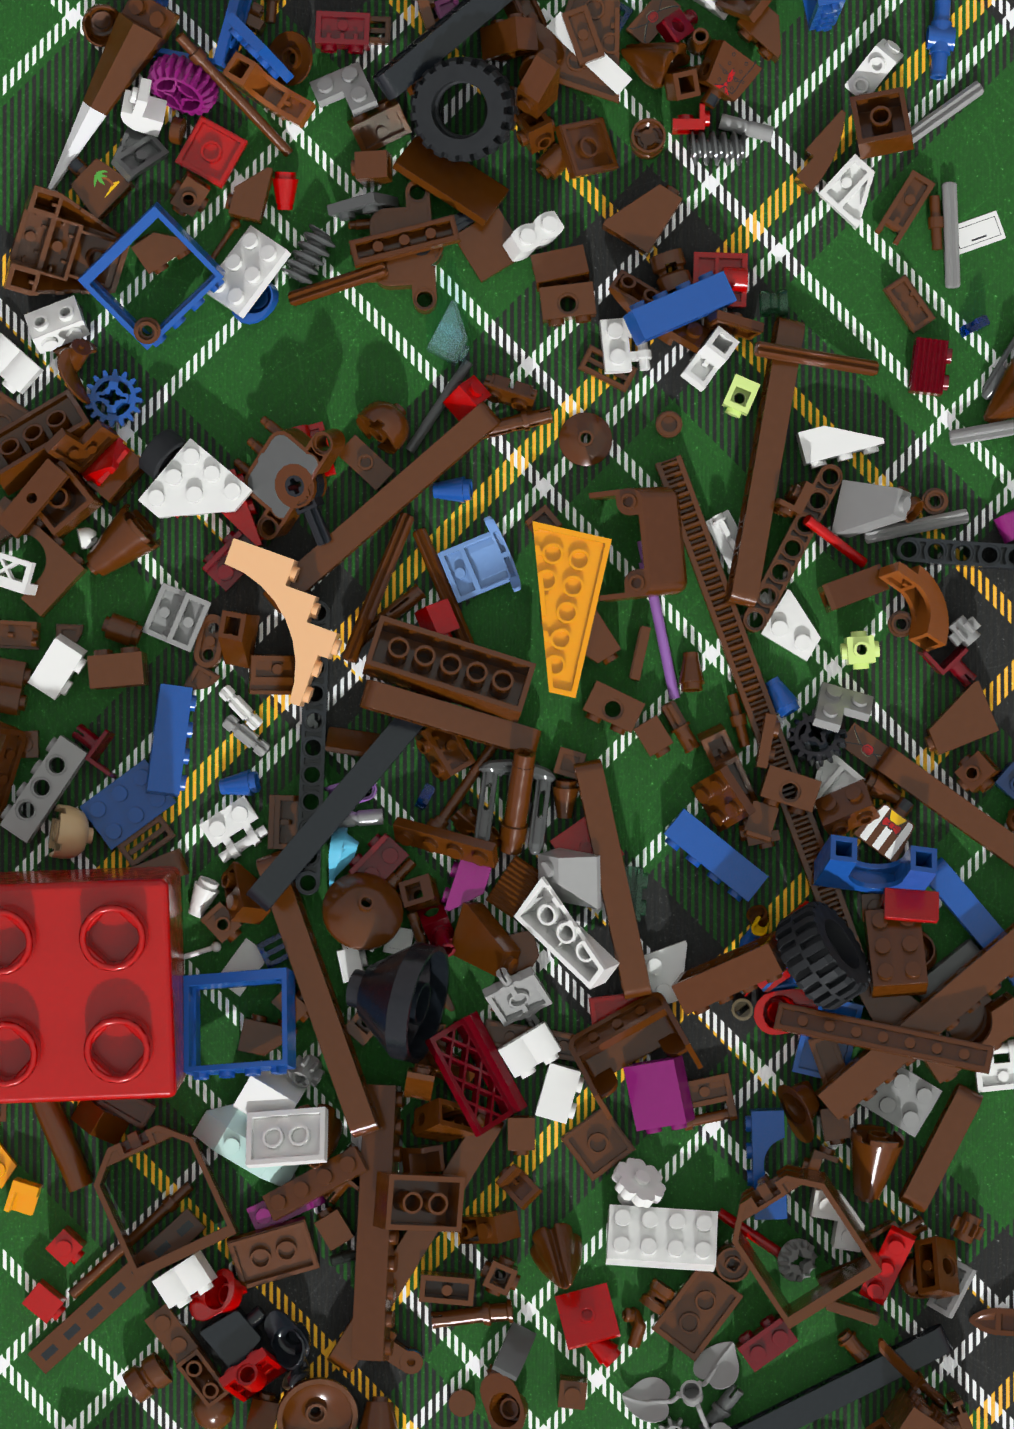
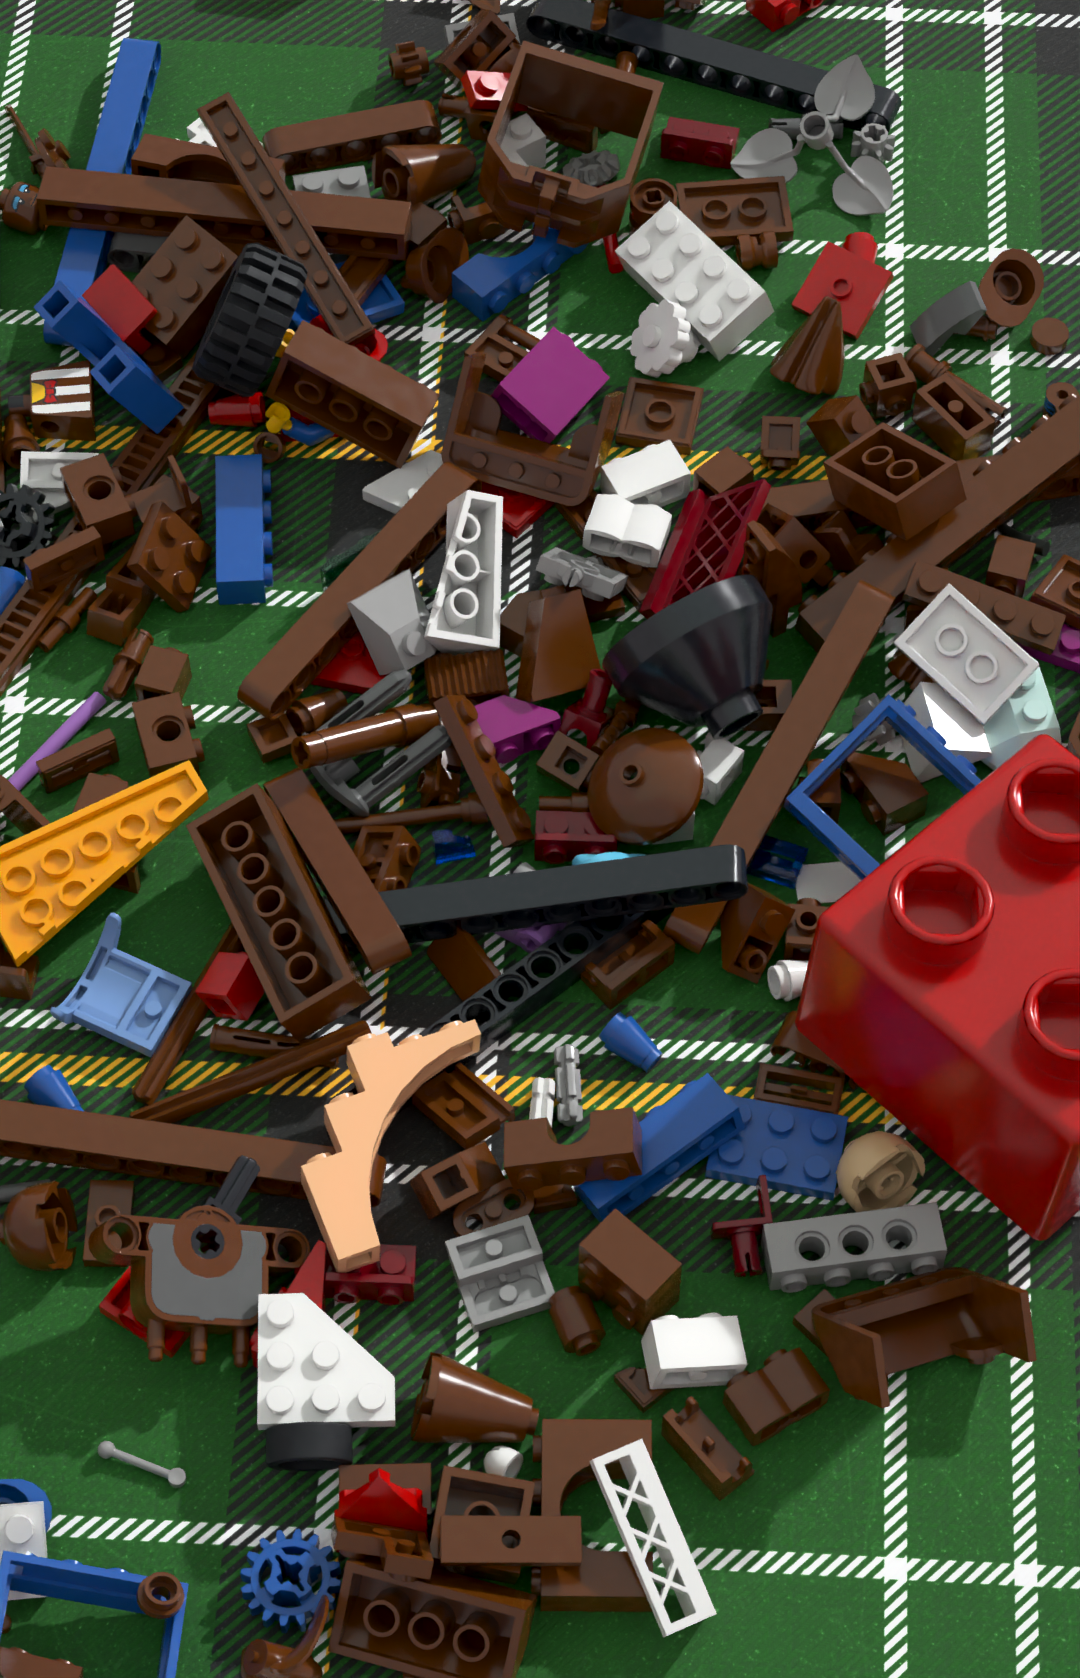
camera: 130 degrees left, 30 degrees down
(179, 712) = (606, 1152): none -> reddish brown arch
(212, 391) = (176, 1476): none -> light grey hinge
(230, 821) = (687, 1022): white plate -> none
(572, 1392) = (930, 248): reddish brown brick -> none
(638, 1326) = (803, 249): reddish brown arm -> none
(691, 674) = (54, 698): reddish brown cone -> none
(847, 808) = (65, 436): reddish brown bracket -> none

